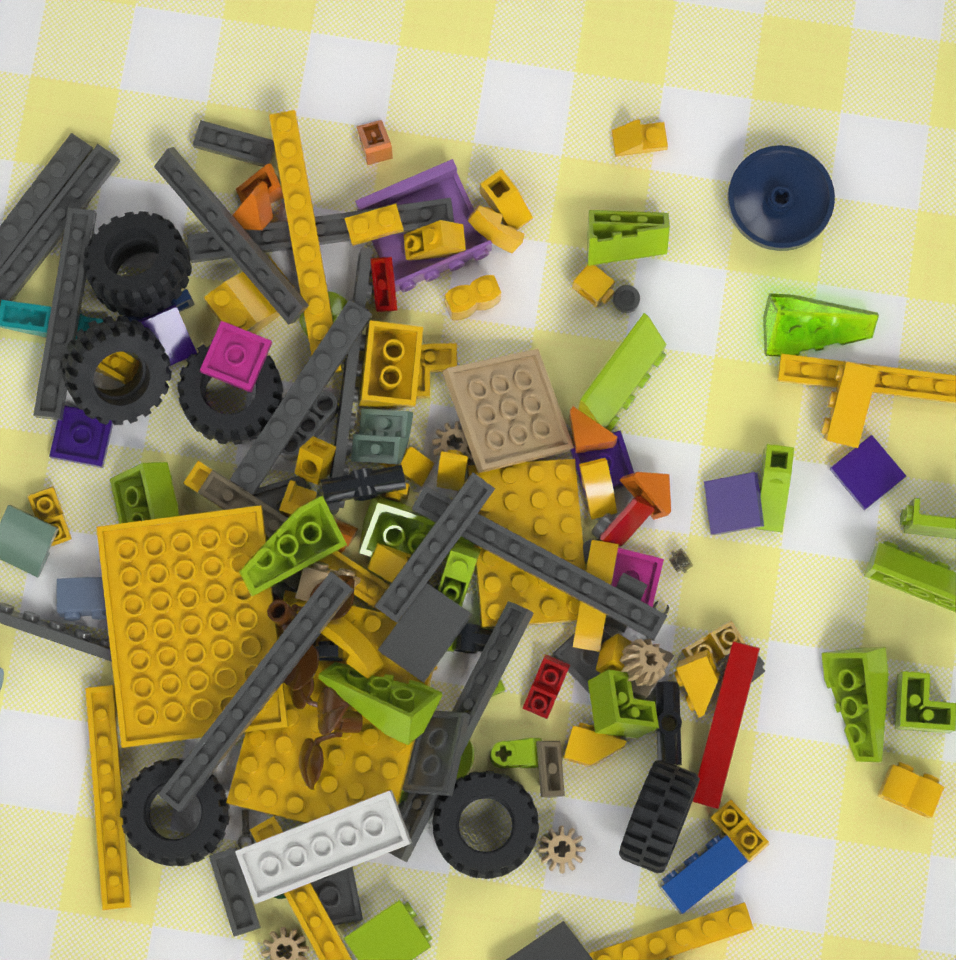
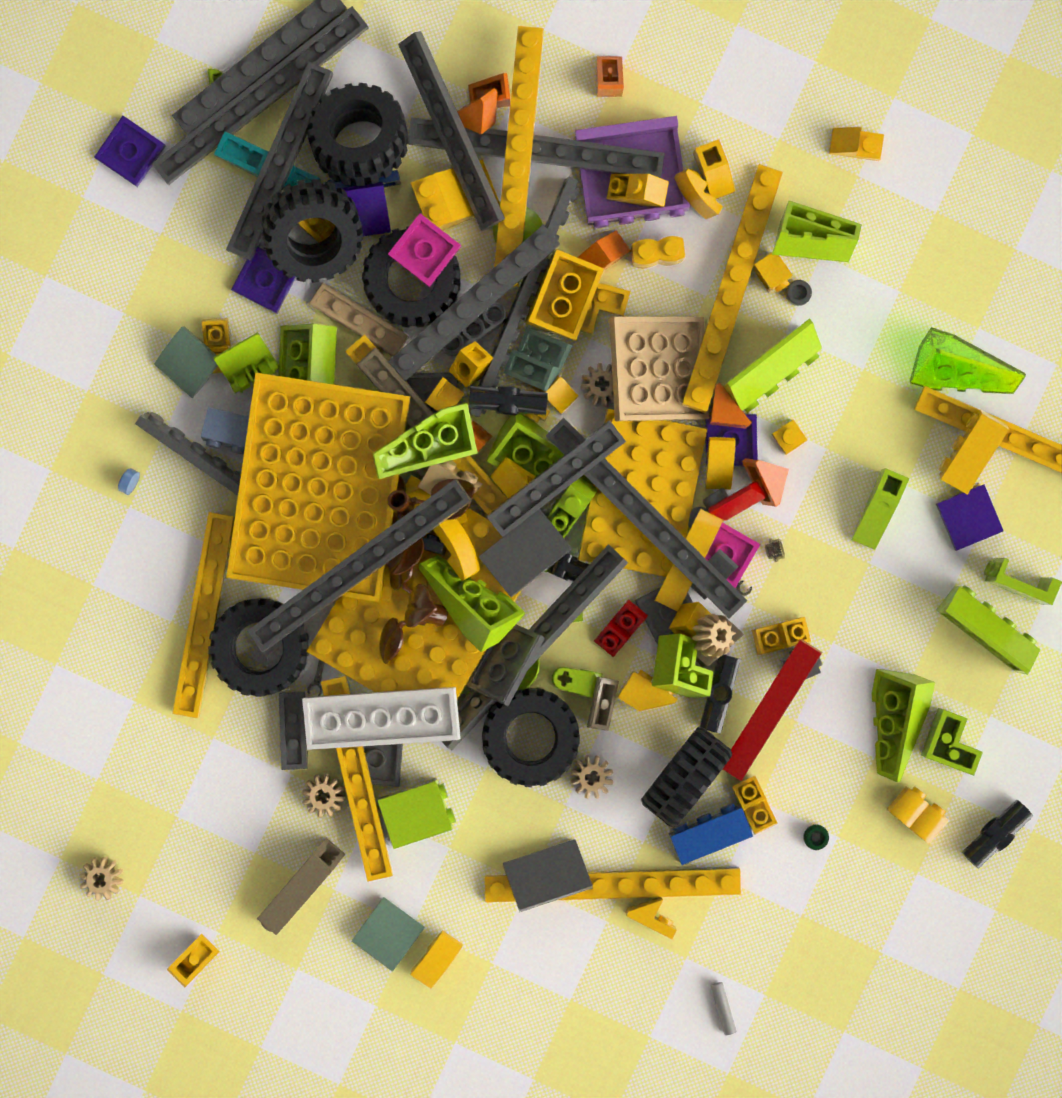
camera: 15 degrees right, 10 degrees up
(79, 522) = (245, 360): none -> lime hinge
(187, 449) = (358, 319): none -> tan tile
(234, 144) = (478, 42): dark grey plate -> none
(374, 224) = (586, 158): yellow plate -> none
(384, 284) = (579, 217): red slope -> none
(421, 310) = (606, 251): none -> orange slope
(452, 470) = (592, 409): yellow slope -> none
(558, 313) = (732, 288): none -> yellow plate
(660, 444) = (789, 437): none -> yellow plate
(699, 678) = (759, 661): yellow slope -> none
(734, 503) = (839, 512): dark purple tile -> none
(781, 198) = (970, 239): dark blue dish -> none
(822, 845) = (821, 843): none -> dark green plate

